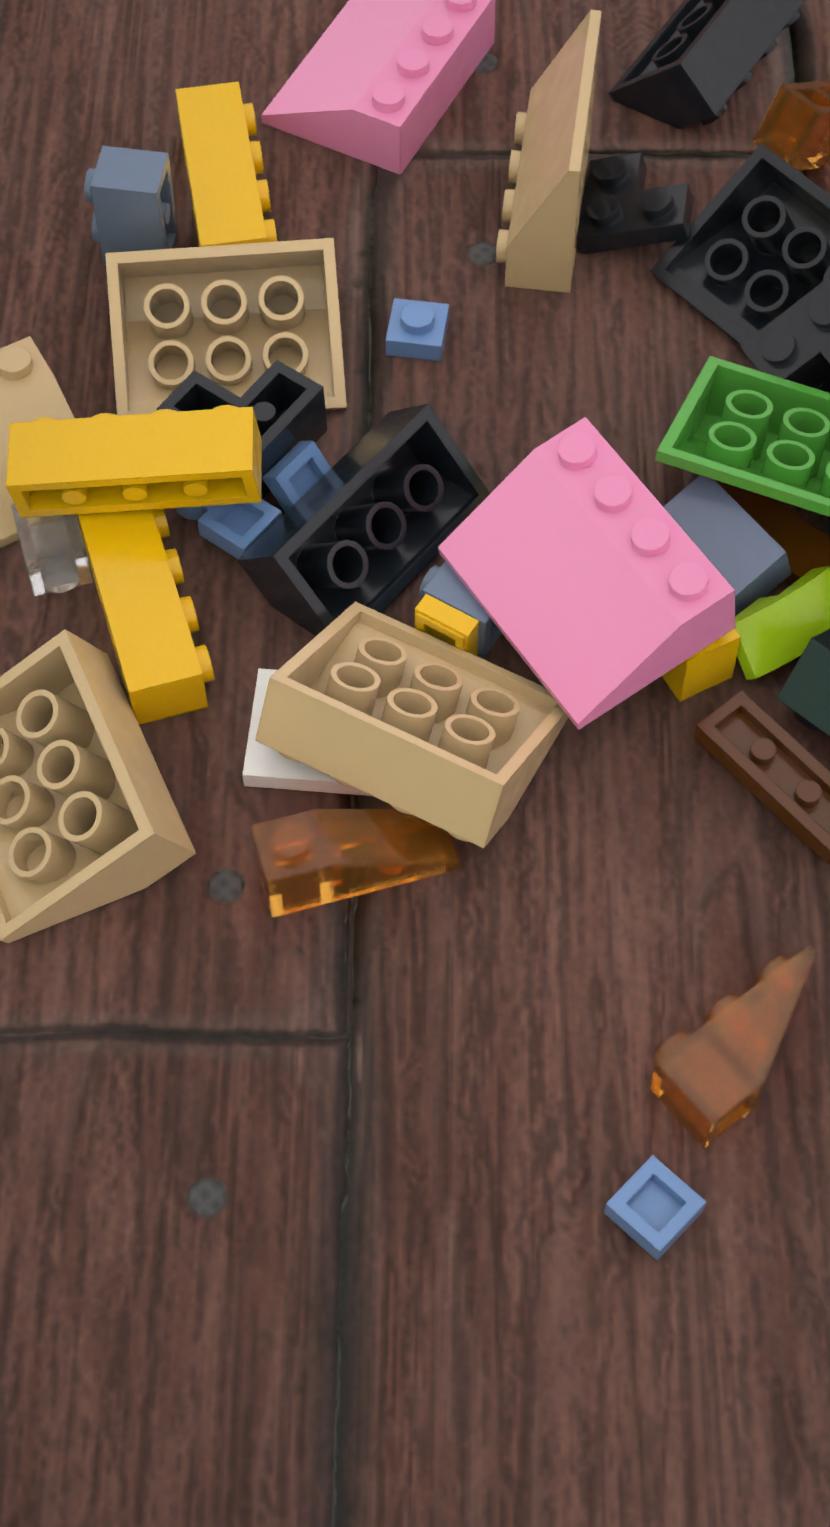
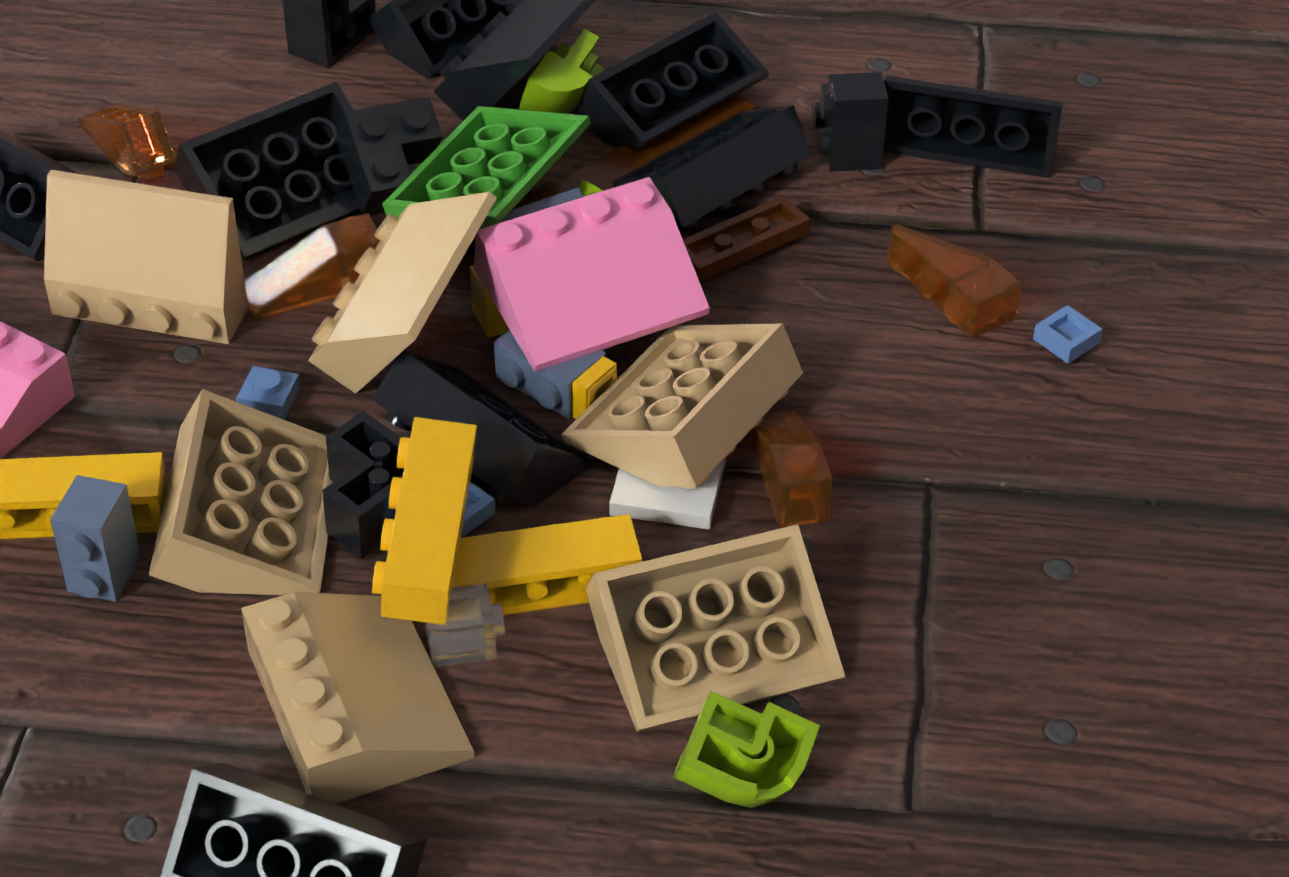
camera: 85 degrees left, 15 degrees down
(538, 383) = (397, 287): none -> tan slope
(629, 340) = (312, 268): none -> clear orange slope

